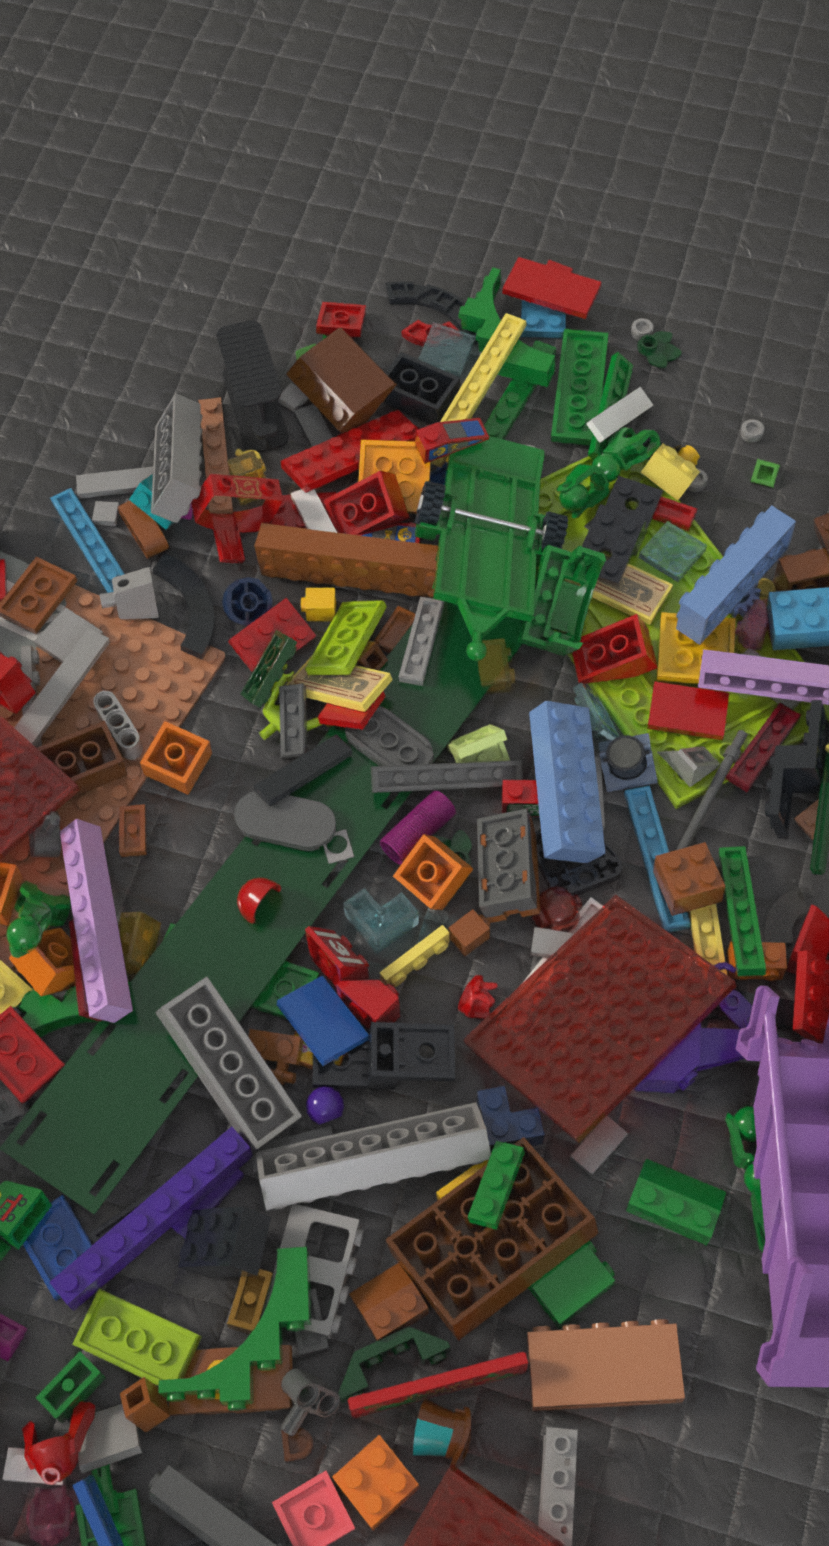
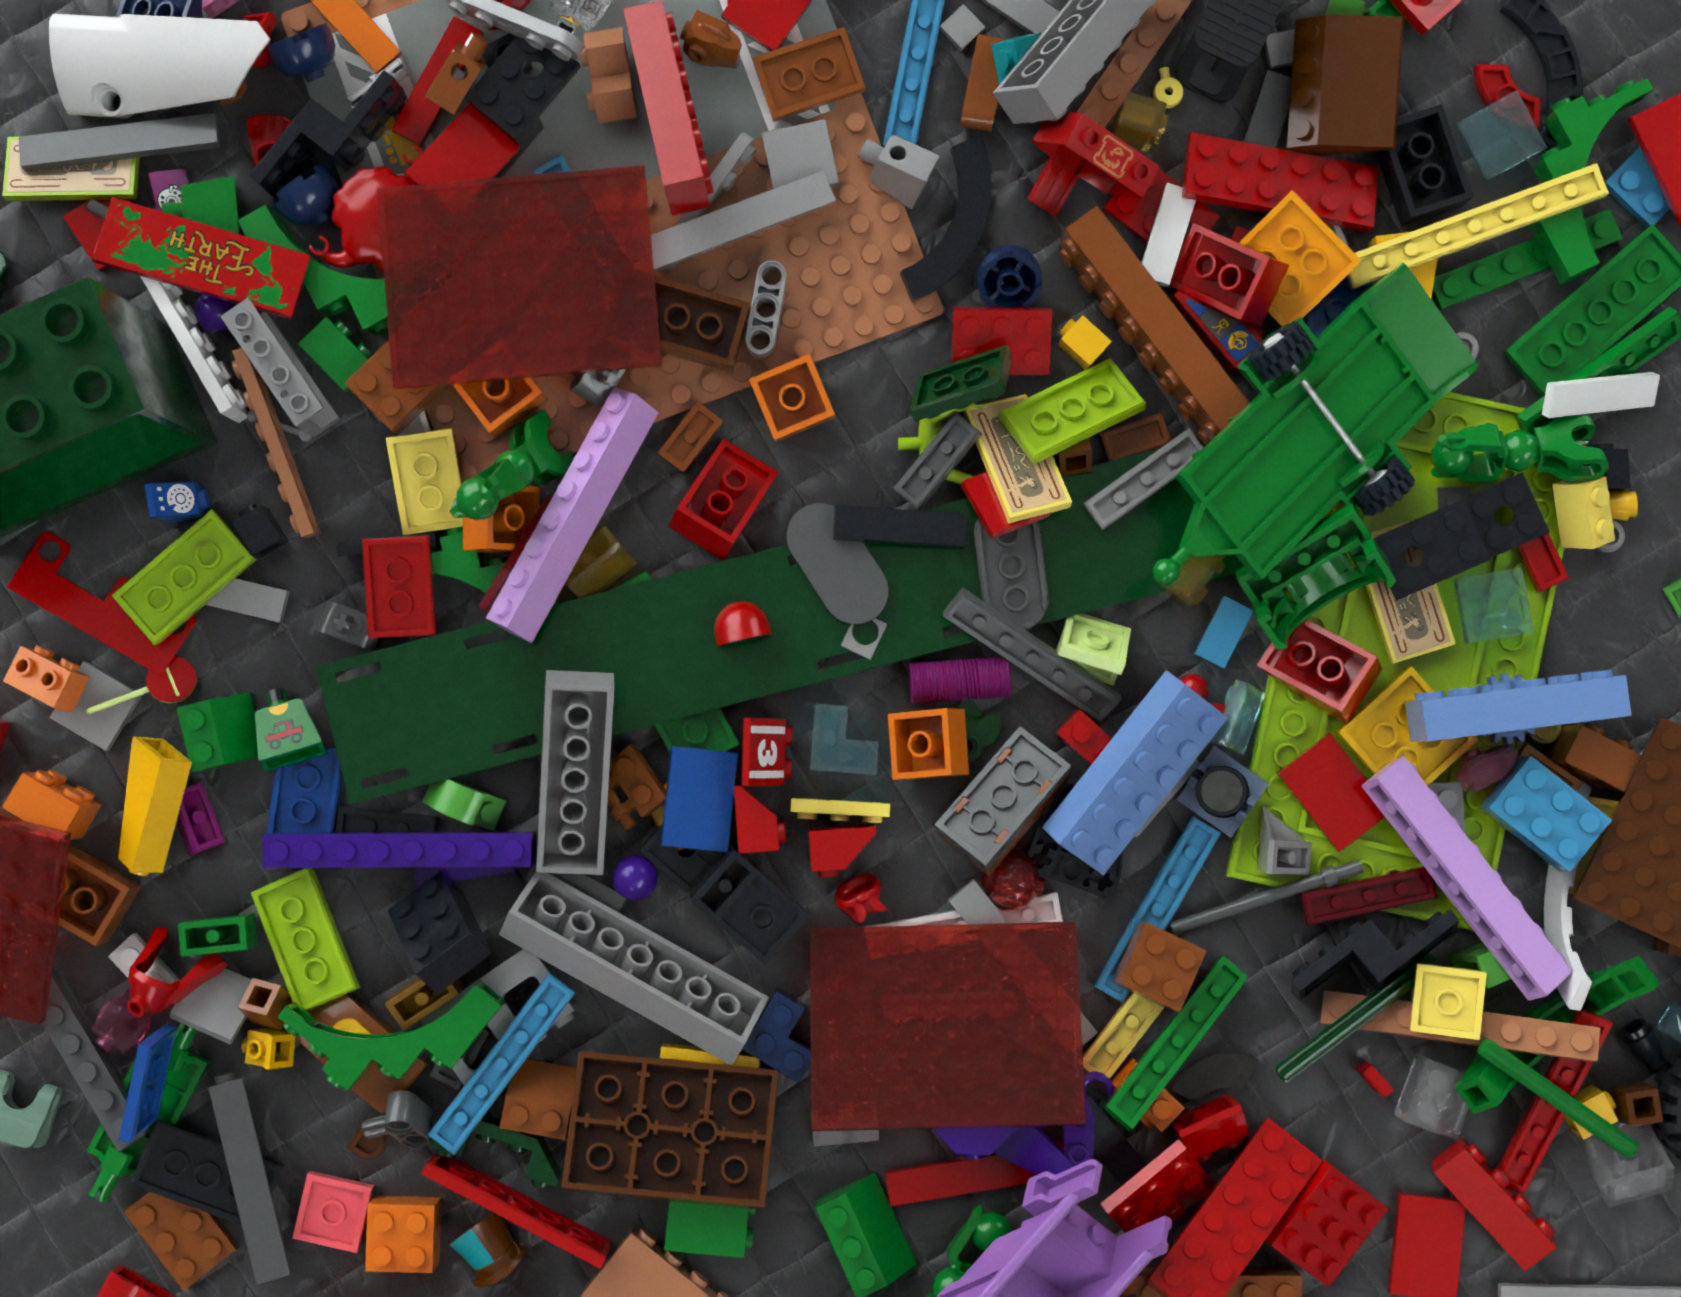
camera: 35 degrees right, 25 degrees up
(167, 1154) = (464, 803): none -> bright green brick
(171, 1436) = (260, 1048): none -> yellow brick
(183, 848) = (722, 499): none -> red slope
(341, 1297) = (502, 1063): none -> dark azure tile
(431, 976) = (837, 847): none -> red slope
(449, 437) = (1384, 278): slope -> none
(469, 932) = (912, 828): dark orange brick -> none
(496, 1185) = (712, 1095): green plate -> none
(543, 682) = (1223, 632): none -> dark azure tile
(700, 1112) = (953, 1178): none -> red tile

